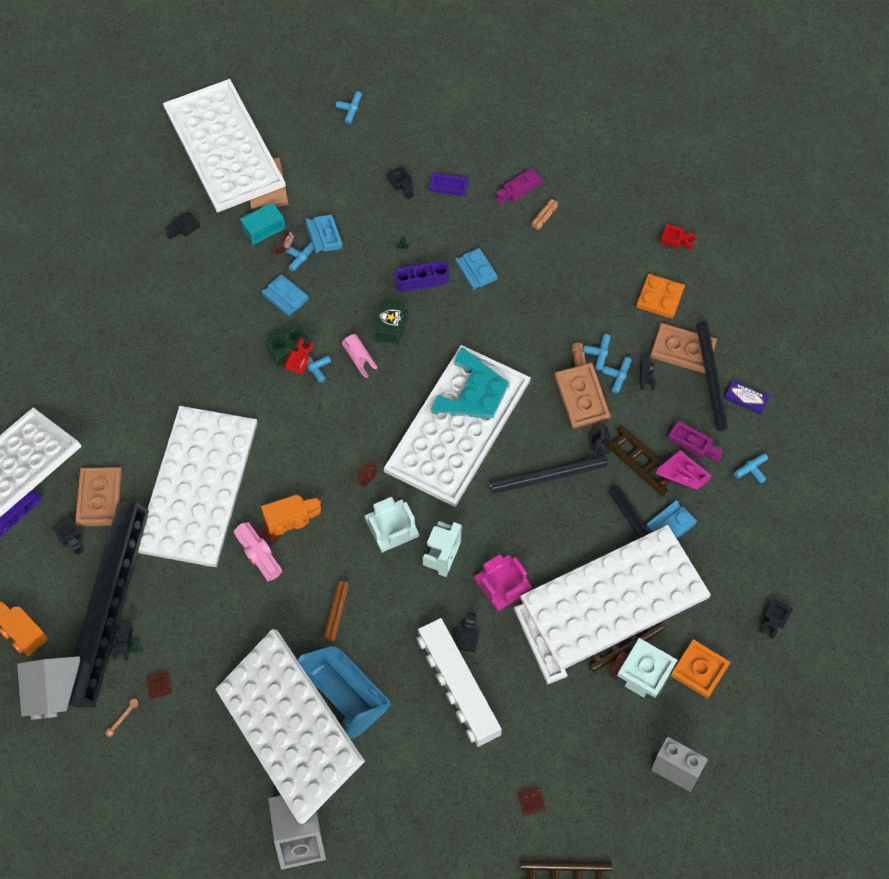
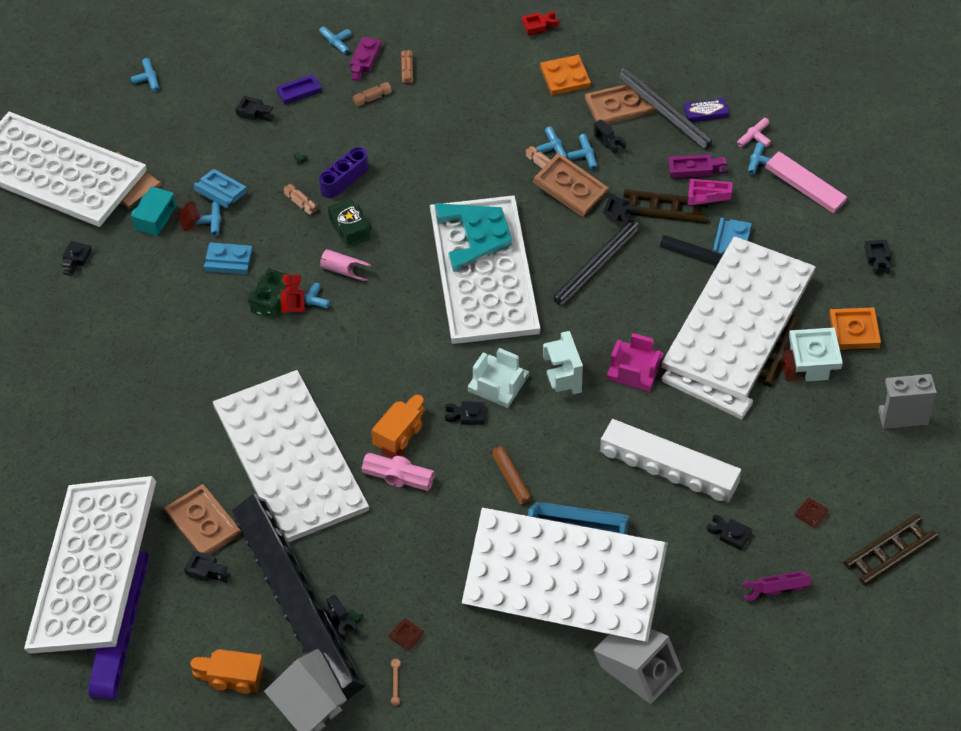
camera: 35 degrees left, 10 degrees down
(348, 538) = (470, 413): none -> black plate
(366, 474) = (440, 354): clear red tile -> none
(374, 278) = (300, 199): none -> nougat axle
(451, 842) = (774, 584): none -> magenta plate
(456, 775) = (731, 533): none -> black plate
(467, 636) = (642, 421): black plate -> none
(476, 269) = (385, 141): dark azure plate -> none
(499, 222) = (372, 94): none -> nougat axle
(509, 158) = (335, 40): none -> dark azure piece
(768, 442) = (754, 132): none -> bright pink piece
(772, 514) = (806, 182): none -> bright pink tile

